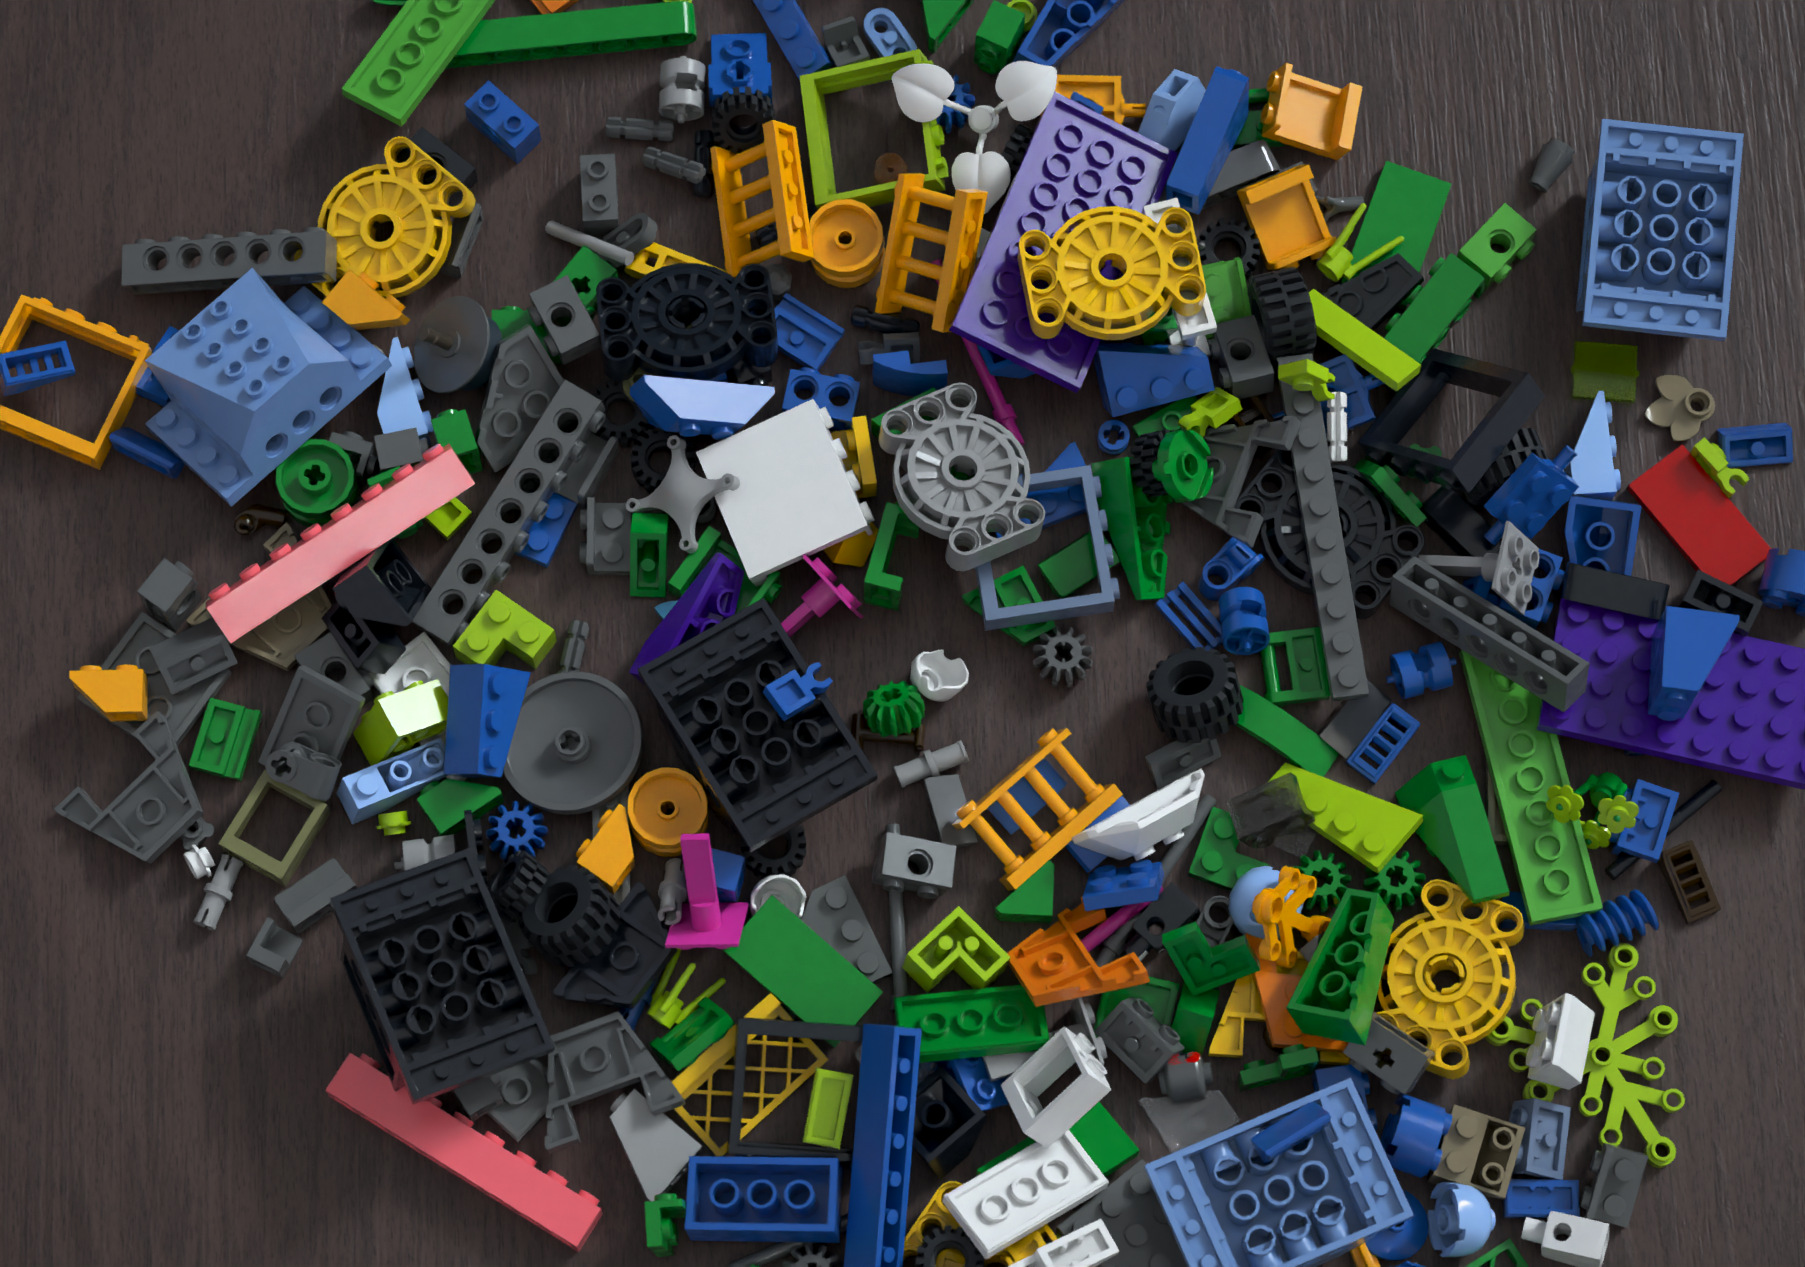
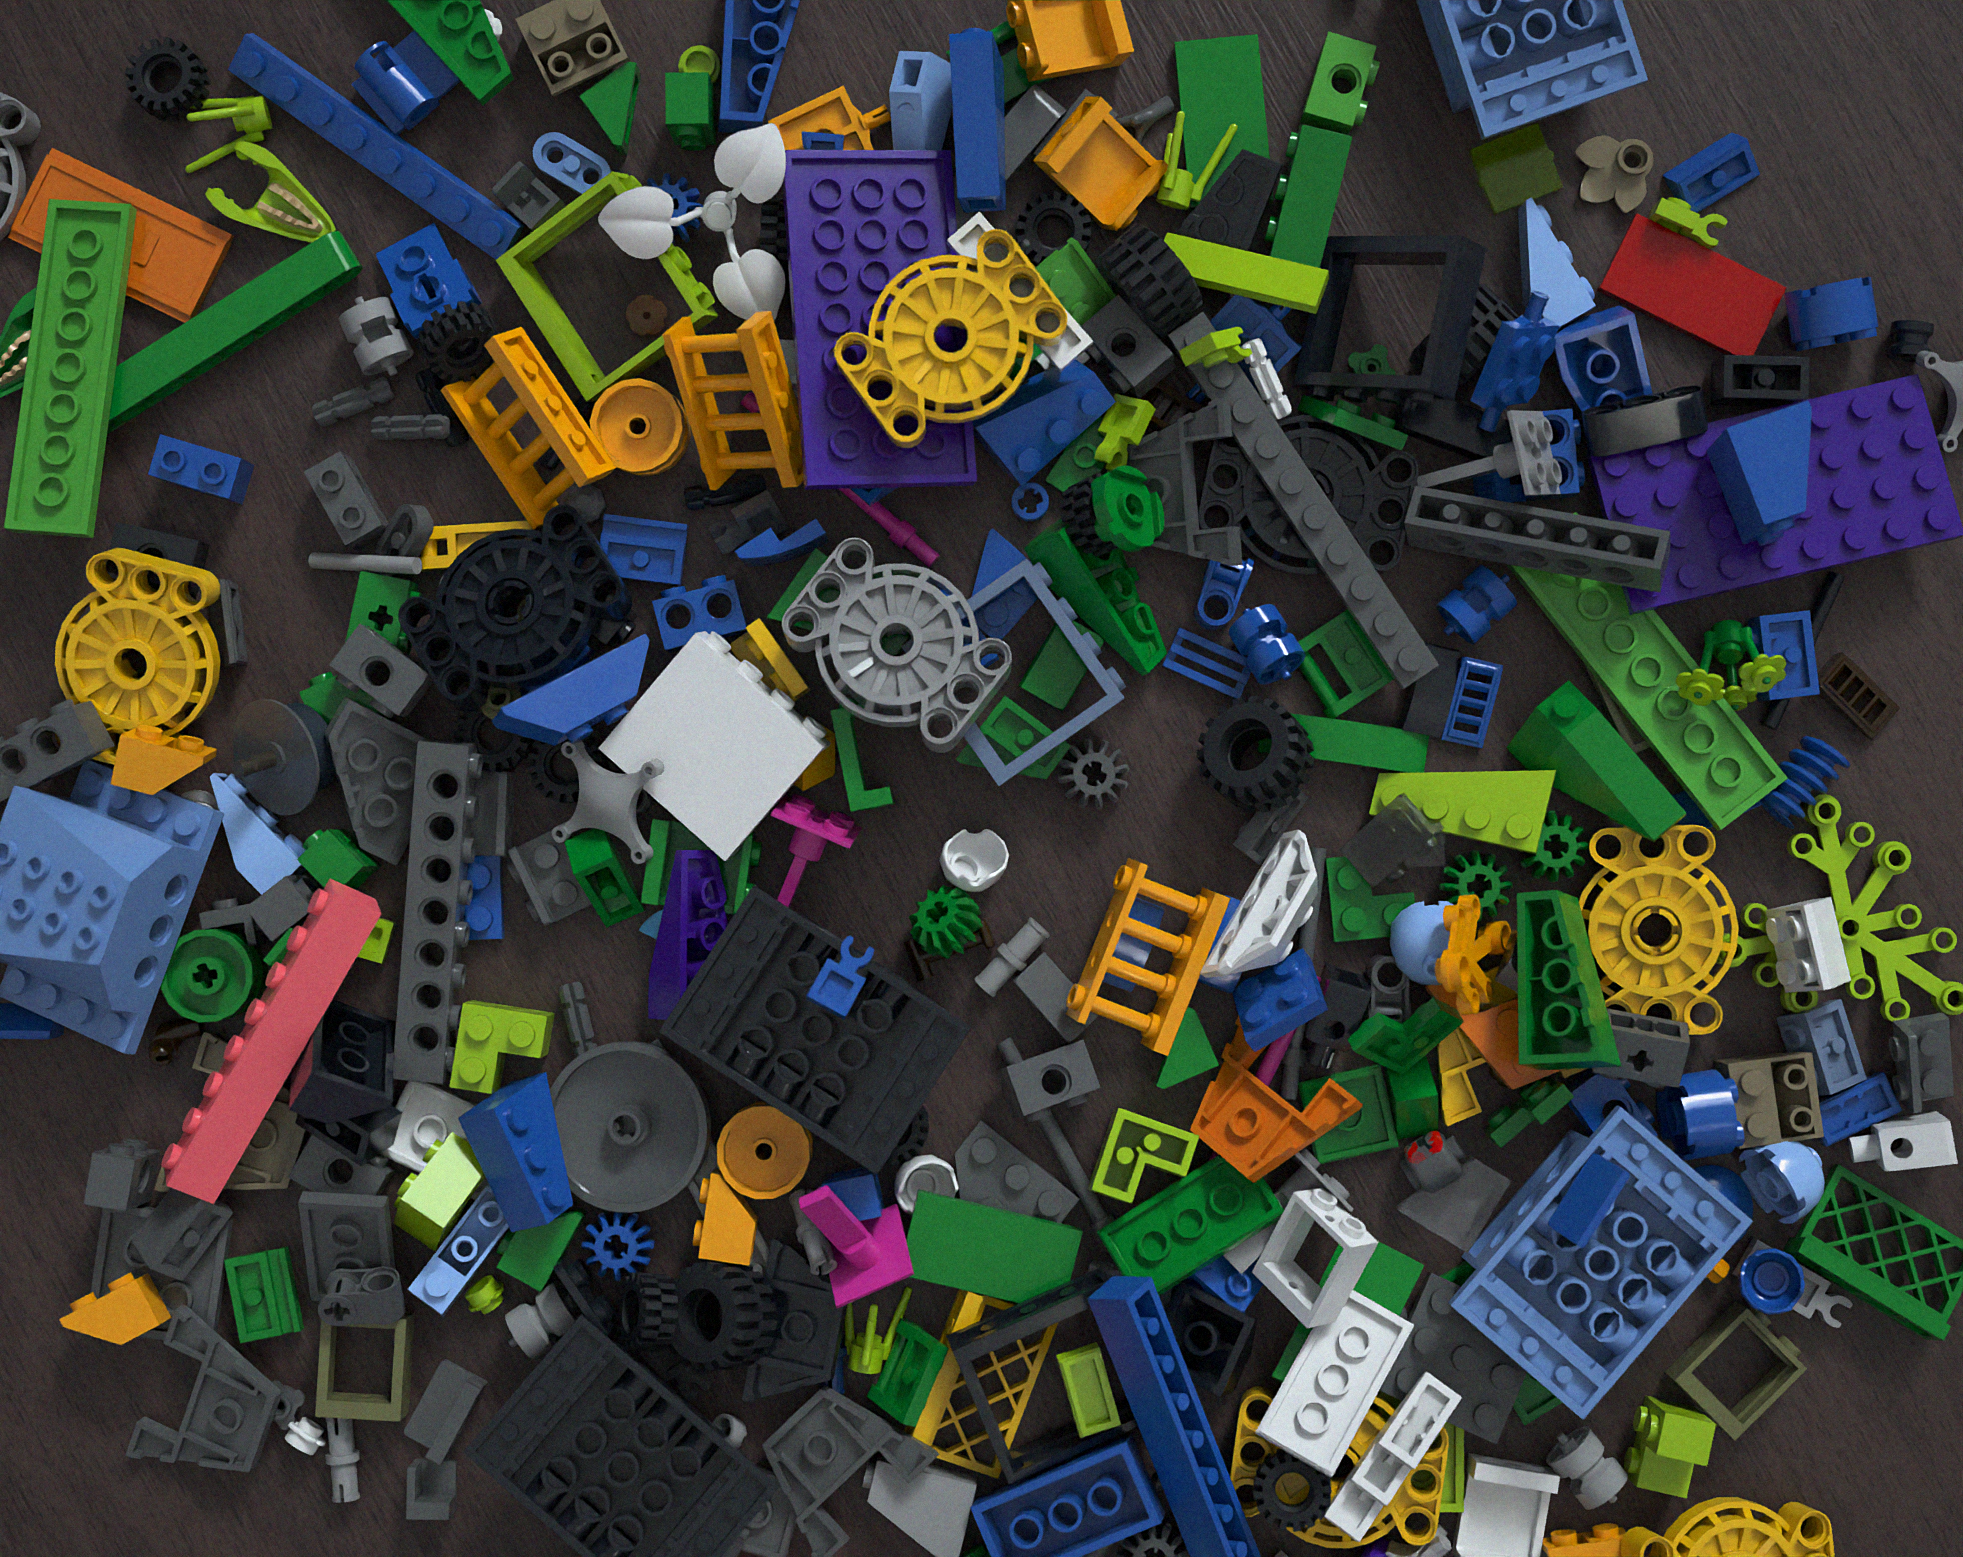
camera: 25 degrees left, 15 degrees up
(1139, 1038) = (1372, 1151): dark grey bracket -> none

